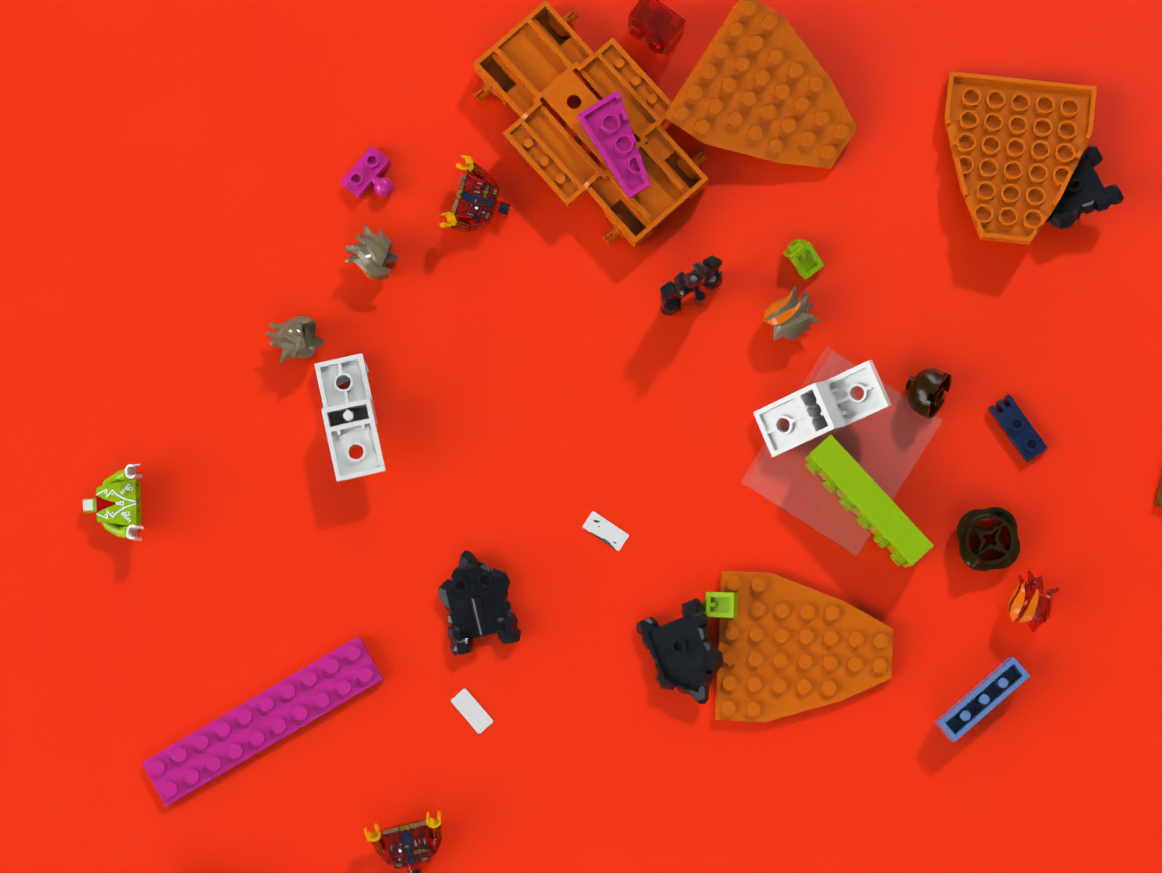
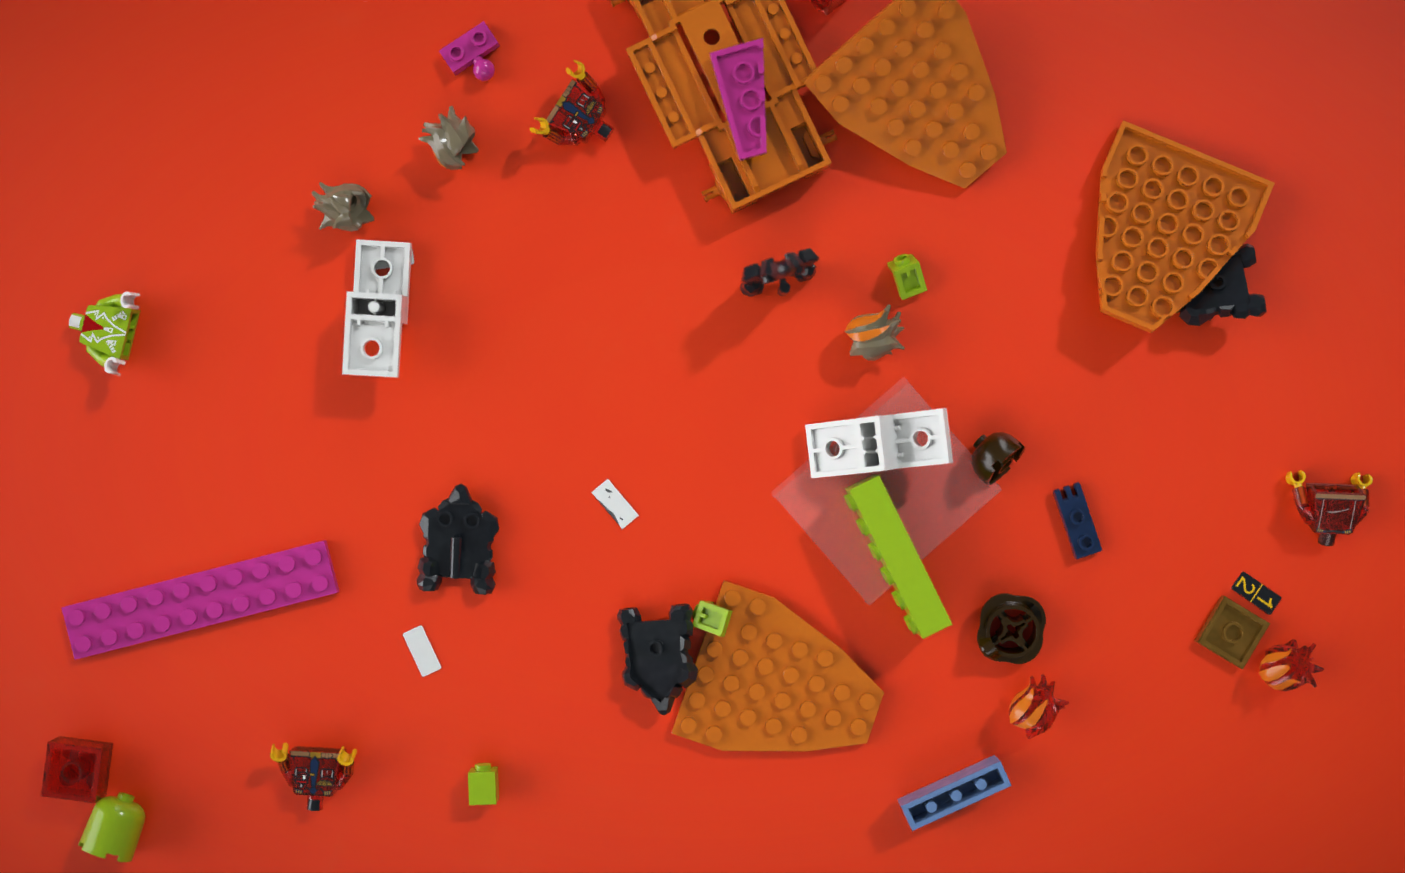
camera: 20 degrees right, 5 degrees up
(561, 813) = (483, 784): none -> lime brick

